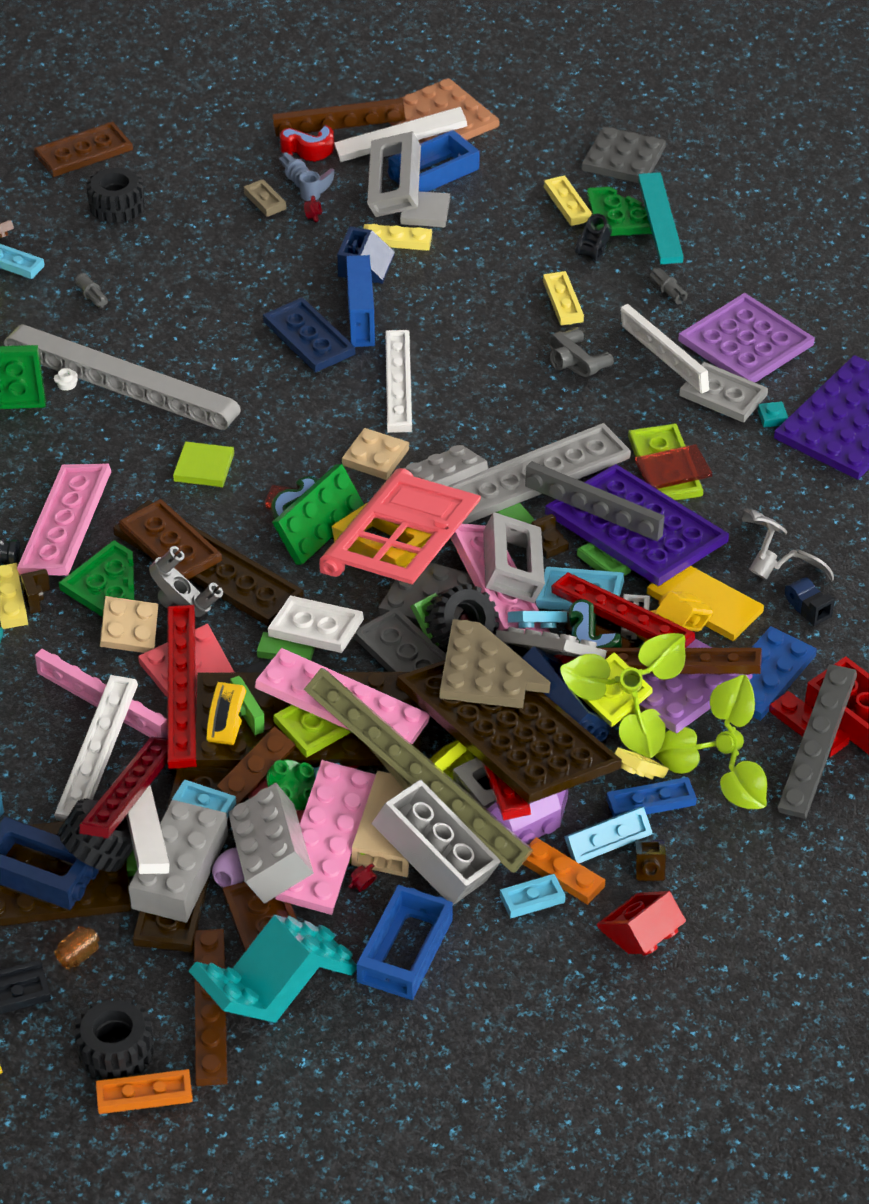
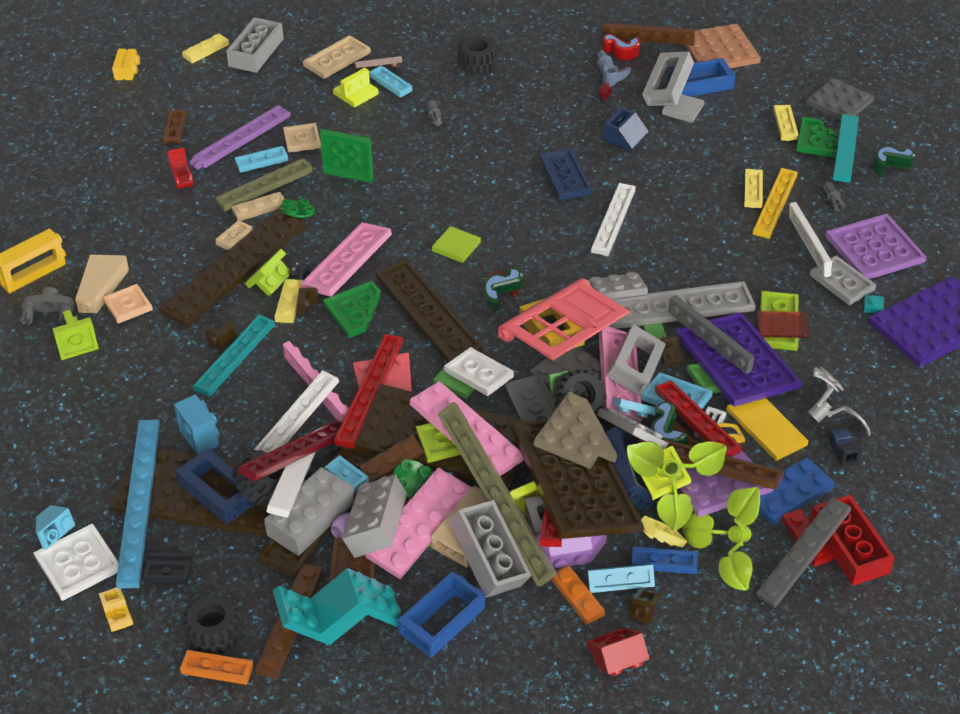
camera: 20 degrees right, 0 degrees up
(66, 379) = (392, 167): white plate -> none
(77, 947) = (219, 551): clear orange brick -> none
(83, 149) = (472, 21): reddish brown tile -> none
(128, 624) = (355, 339): tan plate -> none
(129, 378) = (430, 175): light grey beam -> none
(160, 527) = (407, 290): reddish brown tile -> none
(176, 589) = (396, 323): dark grey connector -> none
(224, 713) = (380, 420): yellow slope -> none
(250, 709) = (400, 415): bright green plate -> none
(264, 198) = (576, 77): dark tan plate -> none
(309, 519) = (504, 299): green plate -> none
(360, 301) = (607, 158): blue piece -> none
(362, 877) = (433, 559): dark red plate -> none
(375, 453) = (575, 264): tan plate -> none
(403, 237) = (658, 122): light yellow plate -> none
(422, 128) = (697, 52): white tile -> none
(532, 896) = (547, 607): medium azure plate -> none
(569, 355) = (741, 229): dark grey connector -> none
(591, 241) = (790, 153): black piece -> none
(597, 309) = (775, 203): none -> yellow tile
(684, 610) = (744, 429): yellow brick -> none
(721, 217) = (892, 157): none -> dark green animal

